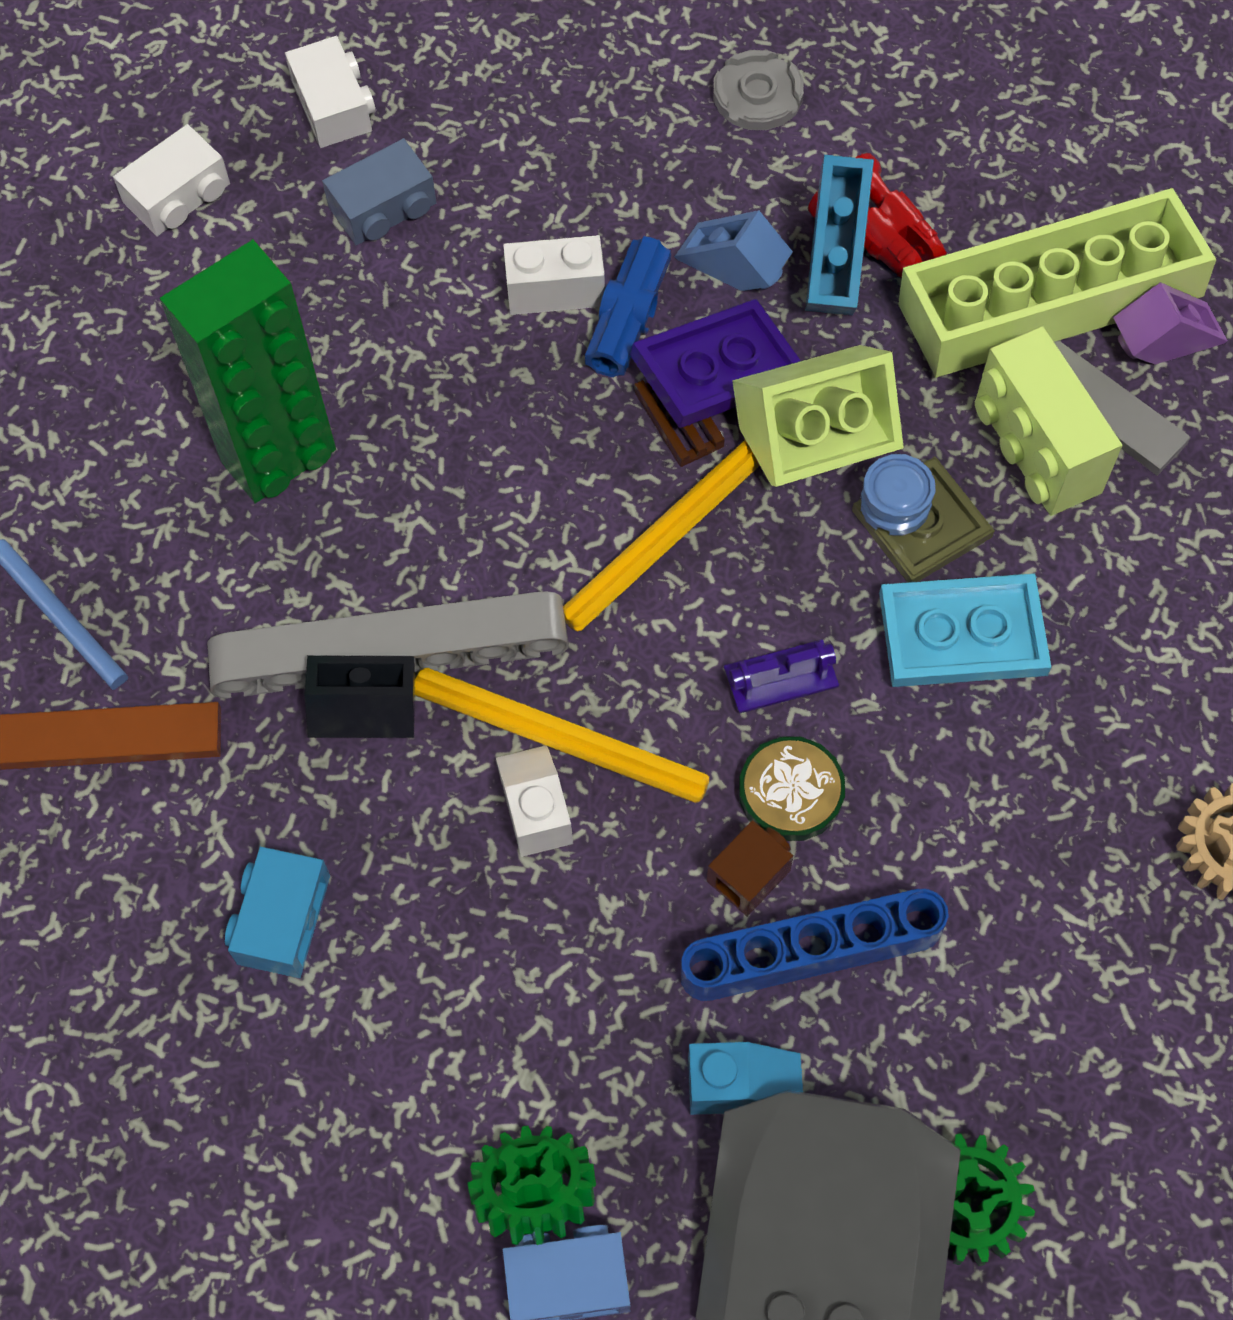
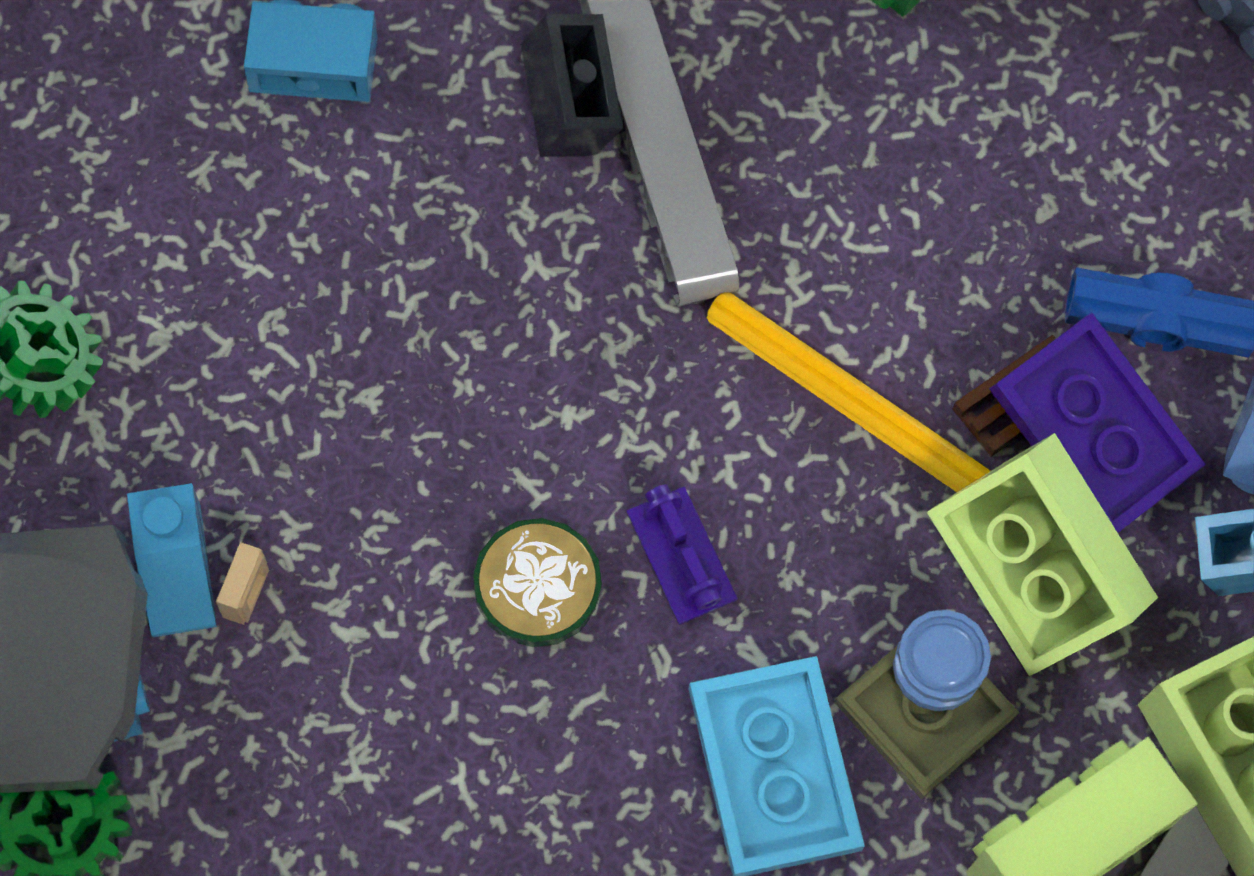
camera: 75 degrees right, 5 degrees up
(535, 800) = (480, 292): white slope -> none
(554, 274) = (1185, 213): white brick -> none
(561, 735) = (566, 317): yellow axle -> none
(750, 867) = (425, 540): reddish brown brick -> none
(772, 1020) = (243, 584): none -> tan tile
(833, 926) = (332, 591): blue beam -> none

